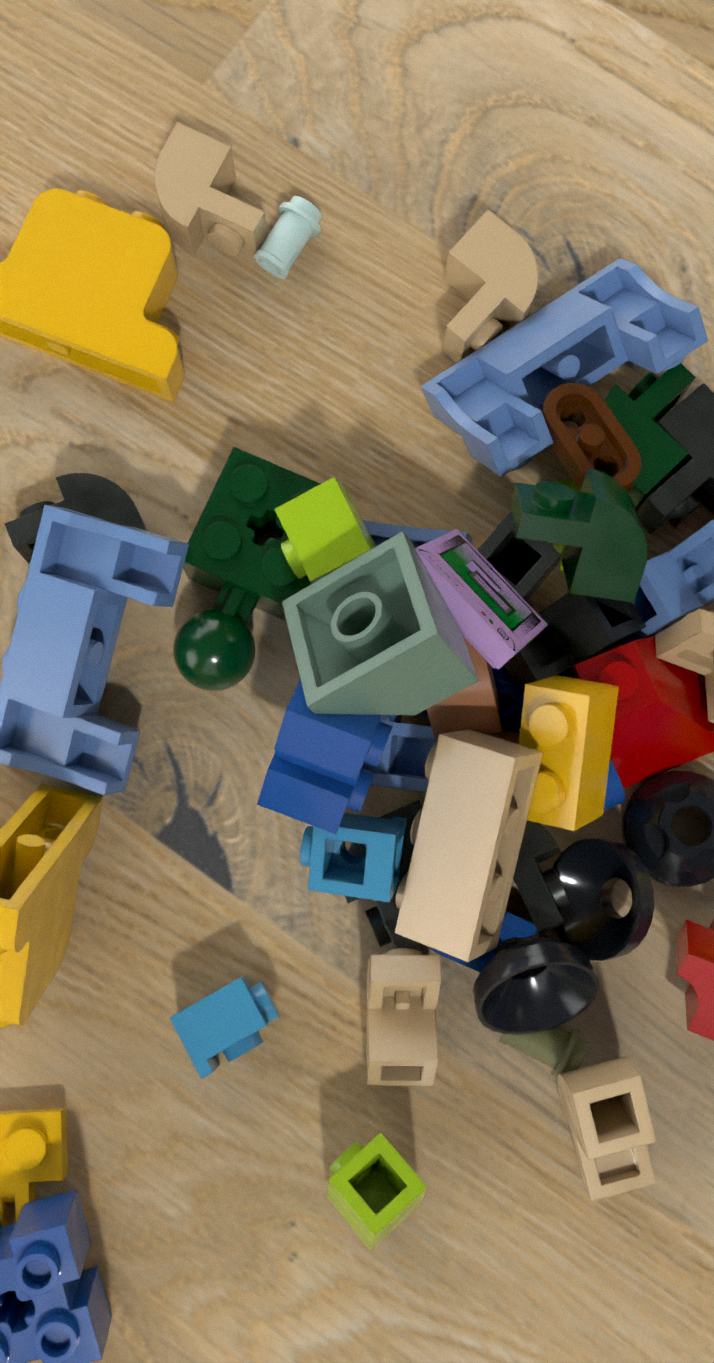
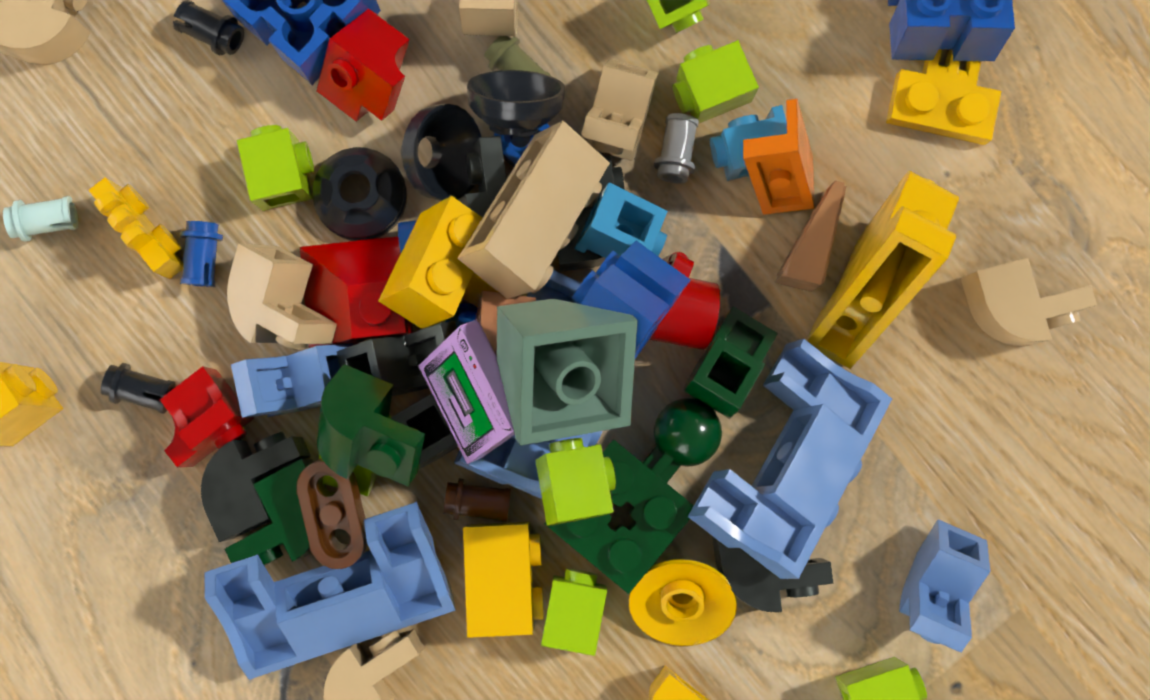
camera: 165 degrees left, 5 degrees up
(121, 907) = (810, 255): none -> medium nougat slope
(169, 463) = (683, 603): none -> yellow dish
(178, 992) = (782, 166): none -> orange panel
(185, 735) = (731, 363): none -> dark green brick
(236, 789) = (694, 313): none -> red piece
(288, 417) = (574, 612): none -> lime brick
(295, 1091) = (714, 81): none -> lime brick
(317, 992) = (677, 149): none -> light grey pin
(381, 435) = (500, 579): none -> yellow brick
(436, 510) = (476, 501): none -> reddish brown pin

